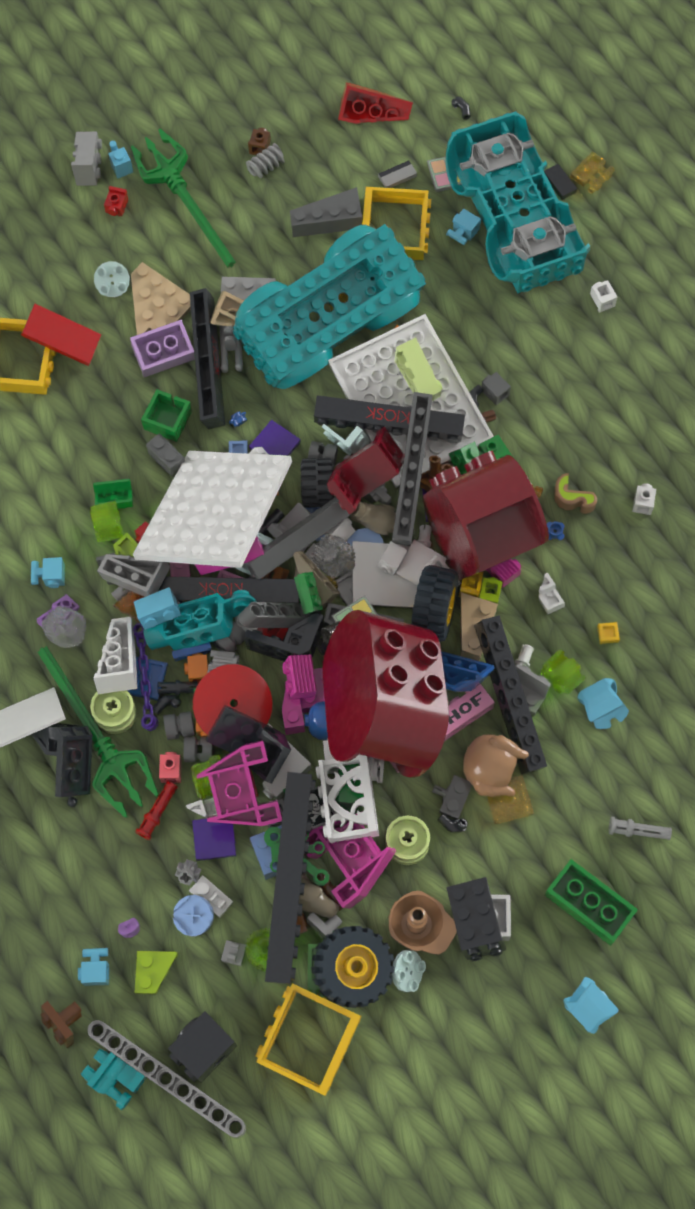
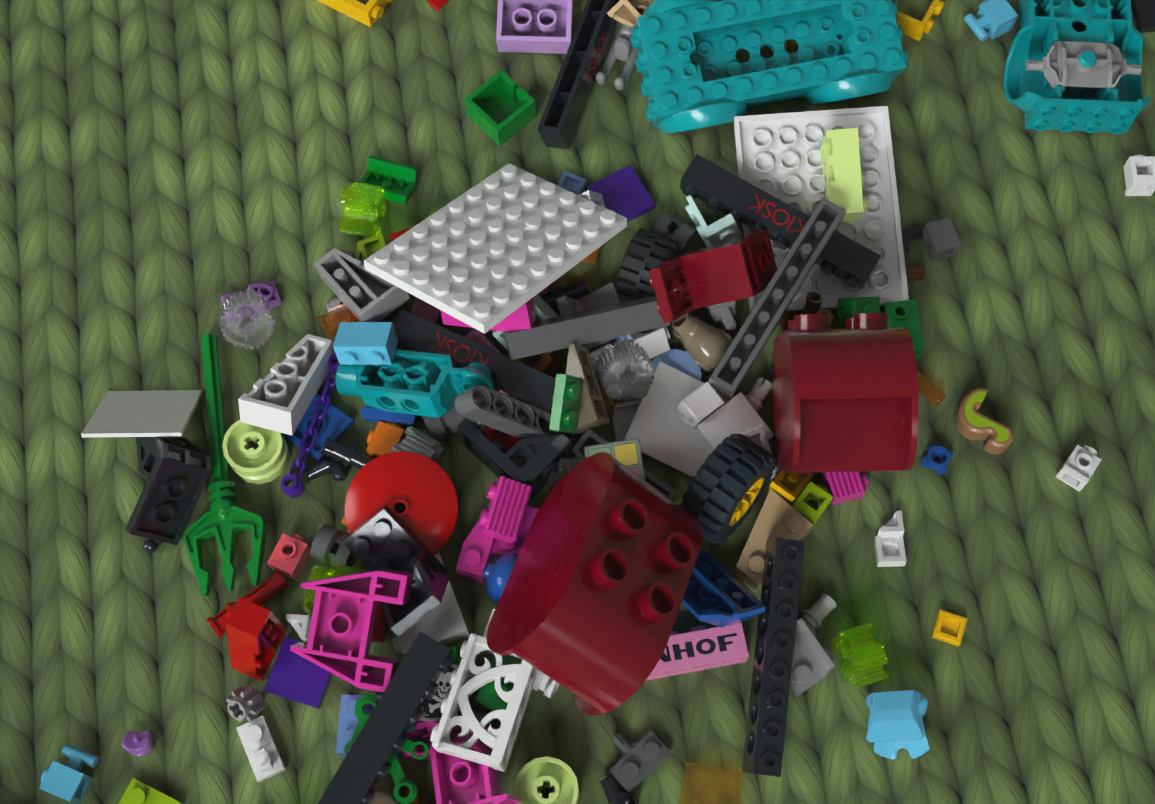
camera: 25 degrees right, 0 degrees up
(52, 572) = (266, 246): medium azure brick -> none
(165, 454) = (475, 154): dark grey brick -> none
(175, 828) = (252, 638): none -> red wedge
(179, 725) = (322, 505): dark grey wheel -> none
(193, 915) = (225, 764): light blue tile -> none
(238, 419) = (588, 147): blue plate -> none
(491, 763) = (703, 740): medium nougat piece -> none

